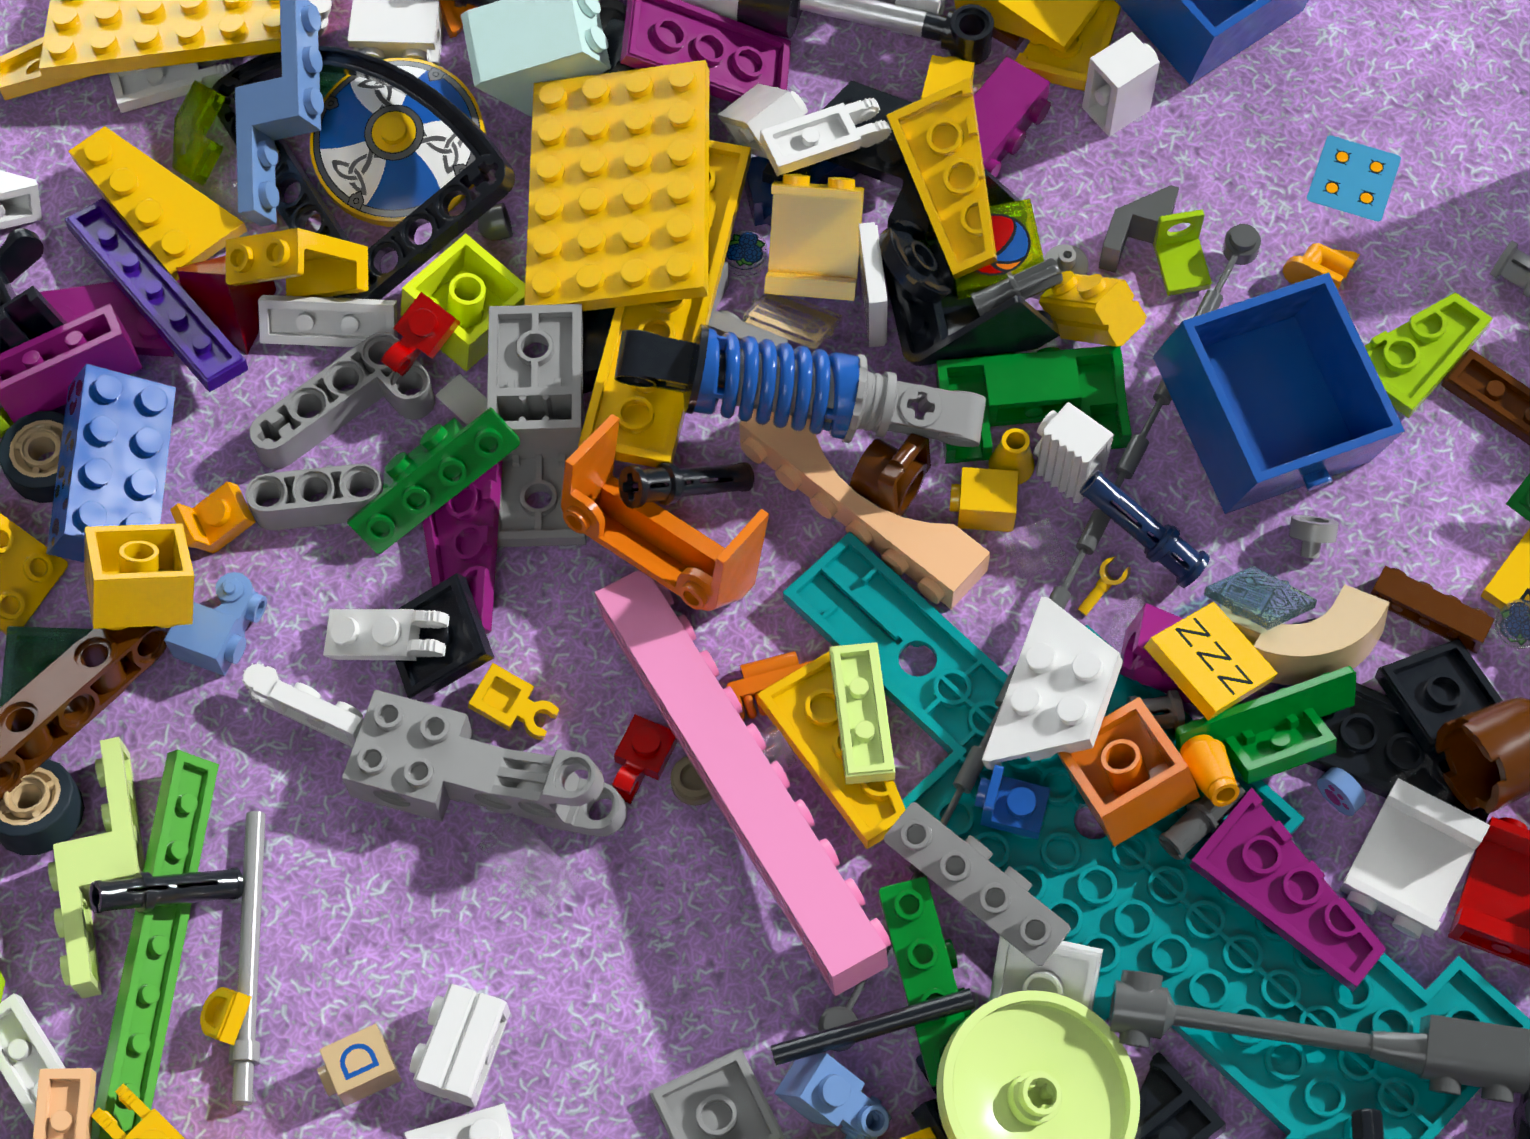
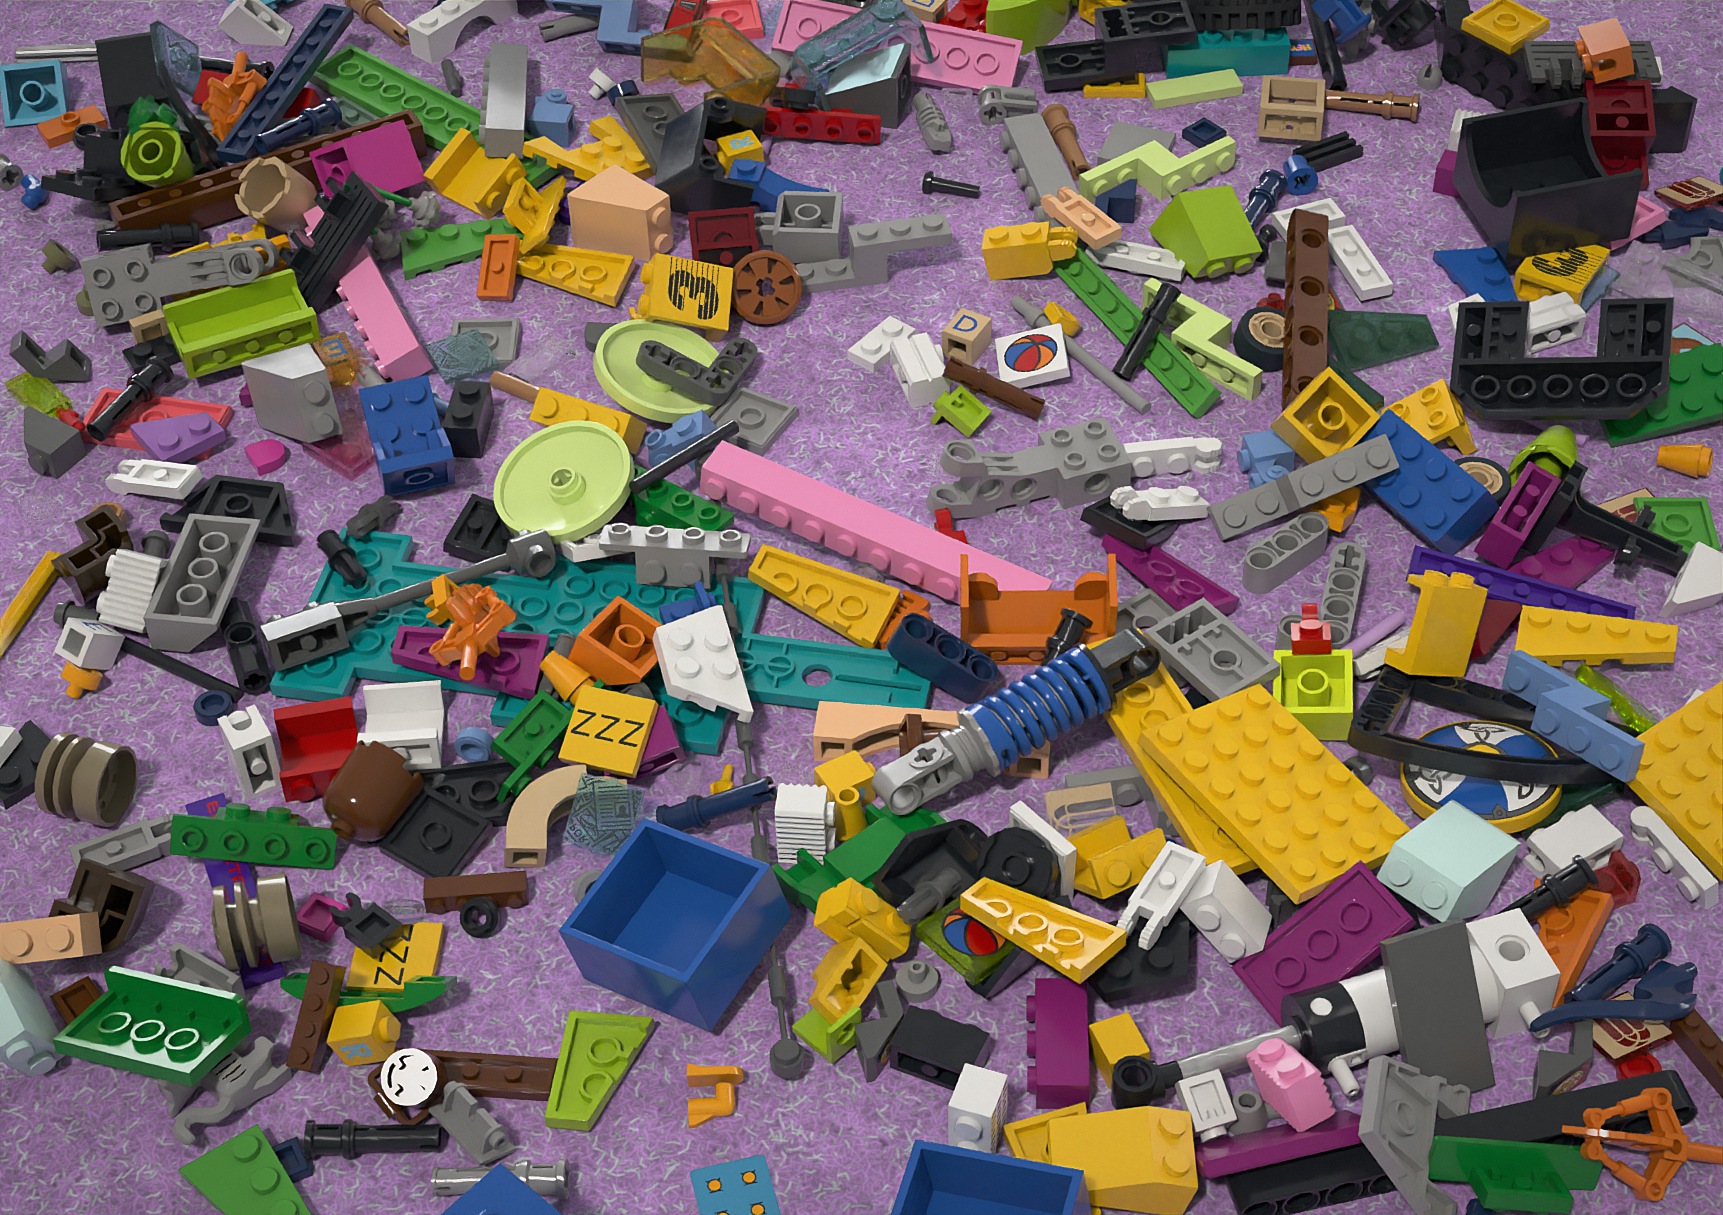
camera: 145 degrees right, 20 degrees down
(236, 528) = (1303, 487): none -> light grey bracket
(313, 976) = (1033, 356): none -> tile
(333, 347) = (1375, 633): none -> lavender bar
(423, 946) = (1000, 391): none -> reddish brown pin
(432, 475) = (1227, 582): green bracket -> none
(471, 945) = (961, 410): none -> lime bracket
(506, 699) = (1055, 523): yellow plate -> none
(795, 567) = (942, 658): none -> dark blue beam
(861, 713) = (823, 606): yellowish green tile -> none
(1095, 177) = (937, 1047): none -> black brick
(1151, 269) = (845, 978): none -> yellow arch
(1277, 992) = (442, 590): none -> light orange tile
(1290, 890) = (476, 626): none -> orange bar
(1444, 571) = (469, 917): none -> black plate

